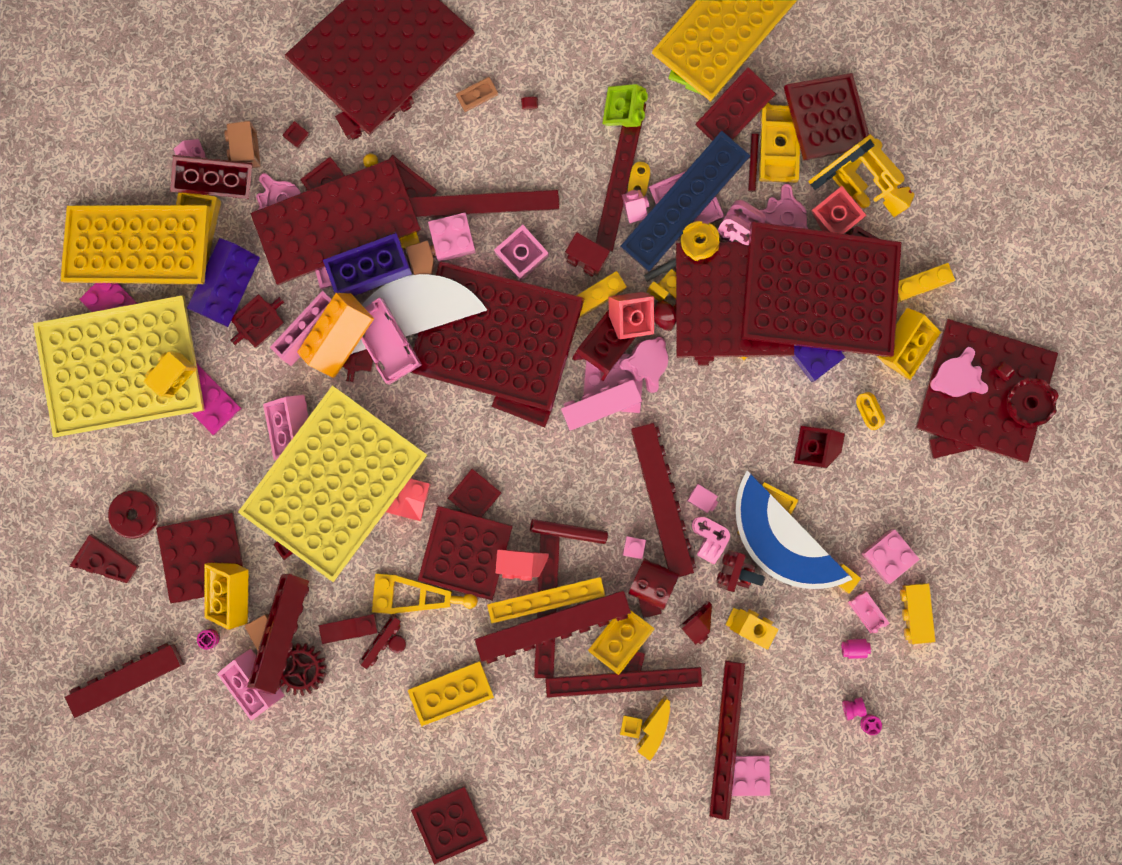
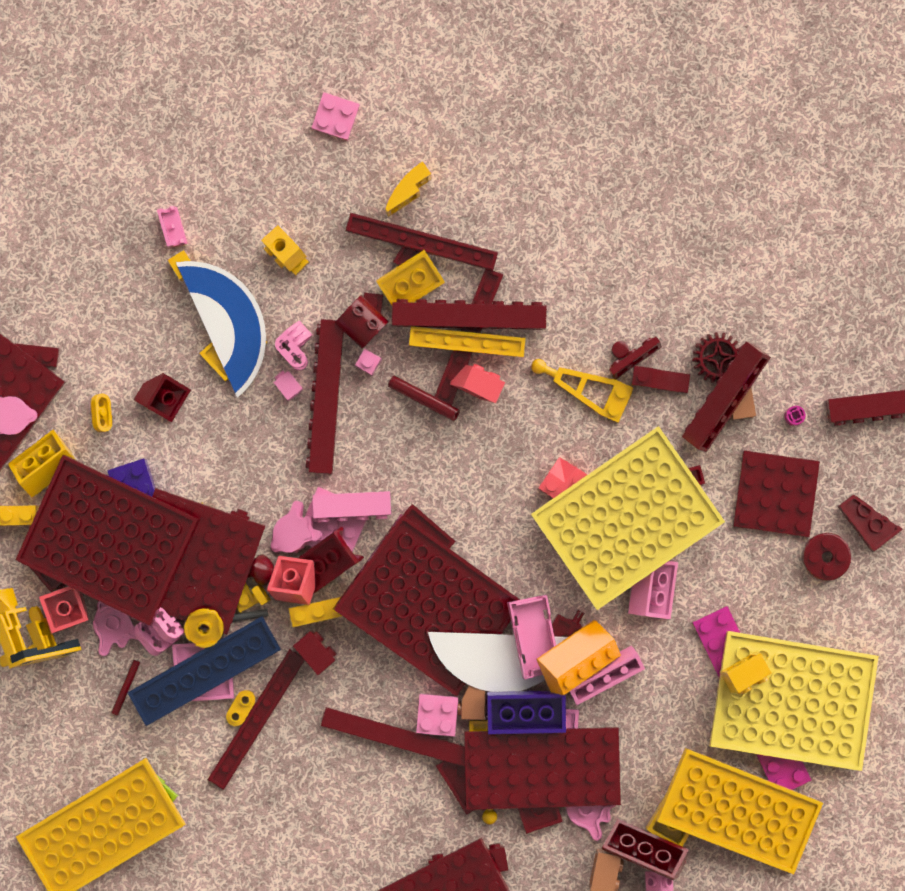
camera: 155 degrees left, 0 degrees up
(225, 282) = (662, 749): dark purple brick -> none
(226, 594) = (763, 450): yellow slope -> none
(236, 678) = (779, 369): bright pink slope -> none
(257, 321) = (649, 699): dark red plate -> none
(296, 134) = (552, 866): dark red plate -> none
(449, 825) = (628, 167): dark red plate -> none
(450, 693) = (585, 287): yellow plate -> none
(464, 552) = (528, 412): dark red plate -> none
(474, 494) = (500, 463): dark red plate -> none
(476, 94) = (365, 845): nougat plate -> none
(521, 253) = (376, 676): bright pink brick -> none
(529, 103) = (318, 818): dark red piece -> none
(625, 105) = (228, 783): lime plate -> none
(631, 726) = (429, 198): yellow plate -> none
(635, 205) = (253, 683): bright pink brick -> none
(698, 624) = (333, 270): dark red slope -> none
(727, 740) = (344, 156): dark red tile -> none
(732, 571) = (284, 308): dark red plate -> none
(736, 106) = (123, 744): dark red plate -> none
(778, 162) = (99, 677): yellow piece -> none
(826, 115) = (40, 705): dark red plate -> none
(854, 708) = (217, 144): dark pink wheel -> none
(856, 648) = (195, 197): dark pink brick -> none
(873, 727) = (205, 120): dark pink wheel -> none
(890, 556) = (133, 271): bright pink brick -> none
(917, 613) = (126, 210): yellow brick -> none

